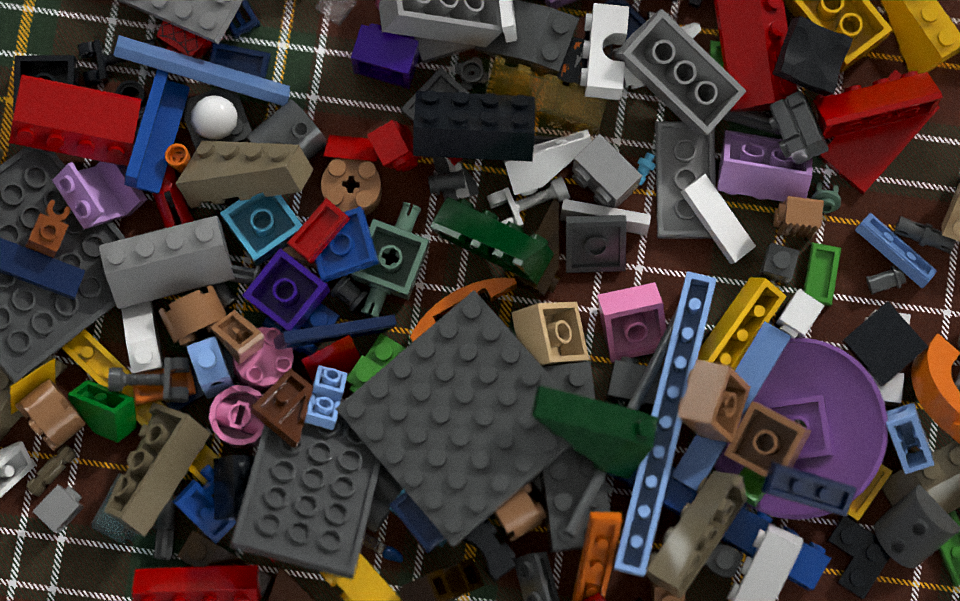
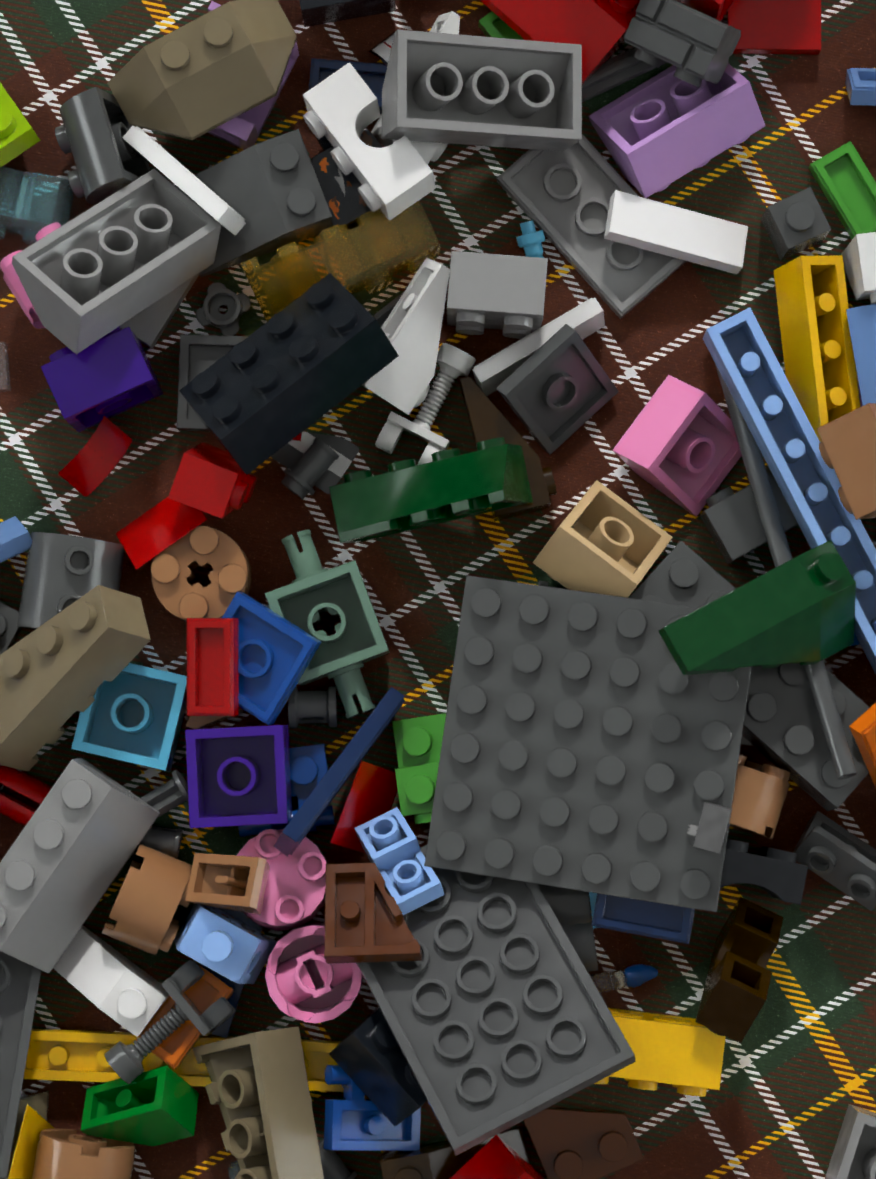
camera: 35 degrees left, 5 degrees up
(351, 92) = (96, 458): none -> red sticker
(483, 502) = (711, 827): none -> flat silver piece
(492, 287) = (480, 552): orange slope -> none
(798, 217) = (774, 146): medium nougat brick -> none
(831, 198) = (784, 99): sand green plate -> none

